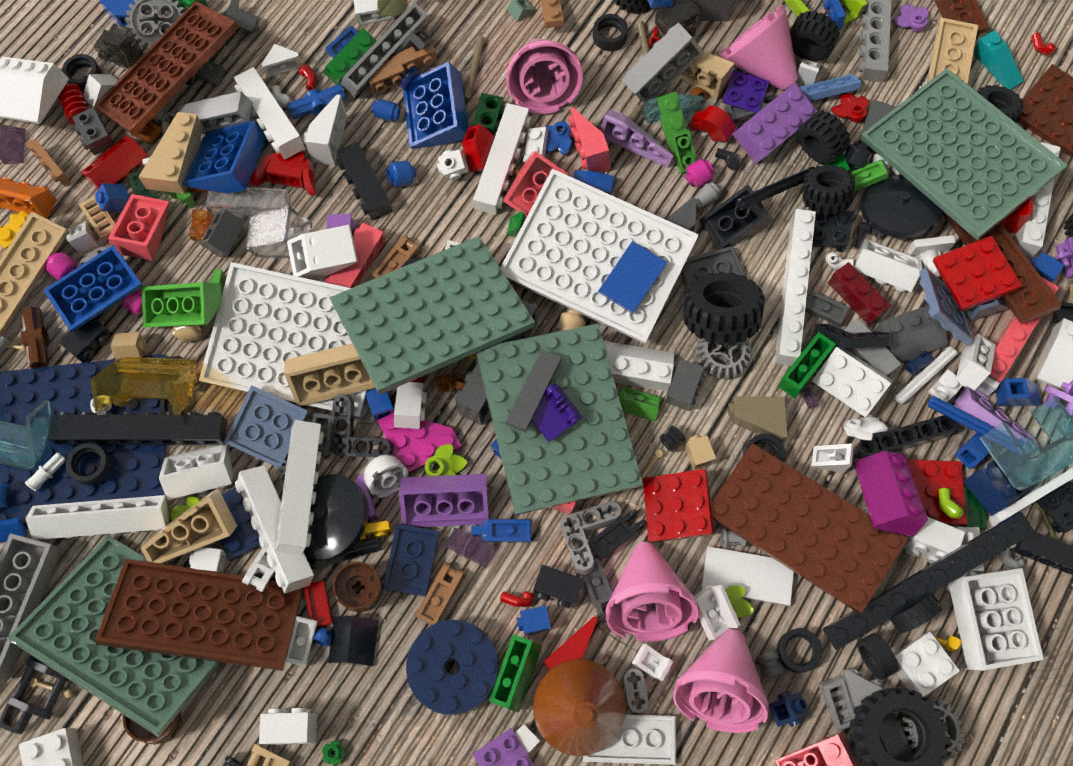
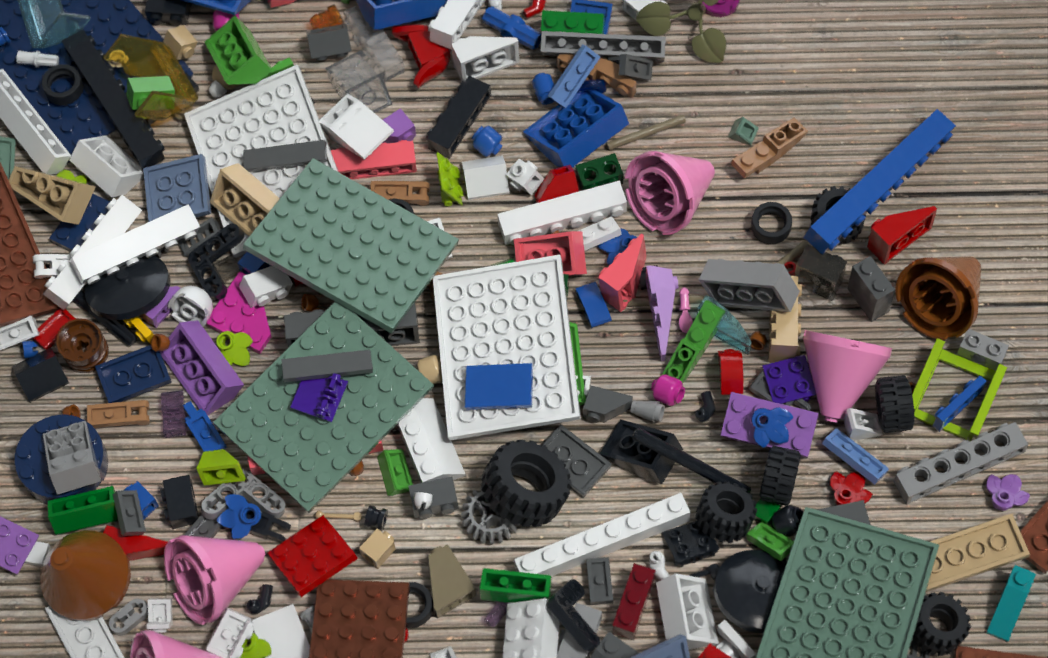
camera: 60 degrees right, 5 degrees down
(156, 395) = (140, 88): none -> bright green brick
(195, 343) = (217, 90): none -> white hinge
(208, 559) = (38, 223): white brick -> none
(306, 320) = (284, 155): none -> dark grey tile
(397, 80) = (574, 76): none -> medium blue plate
(400, 518) = (160, 342): none -> dark orange hinge
(409, 219) = (449, 181): none -> lime hinge
(410, 634) = (71, 409): none -> dark orange hinge
(429, 193) = (485, 177): none -> white slope
(466, 654) = (71, 457): none -> light grey slope
(516, 601) = (147, 476): red arm -> none
(549, 634) = (129, 512): none -> dark grey plate
(552, 534) = (219, 468): none -> lime slope
(605, 547) = (236, 515): none -> blue plate
(647, 128) = (685, 319): none -> bright pink piece
(689, 570) = (263, 602): none -> black arm
(691, 390) = (423, 498): none -> white hinge
(786, 116) = (773, 428): none -> blue plate

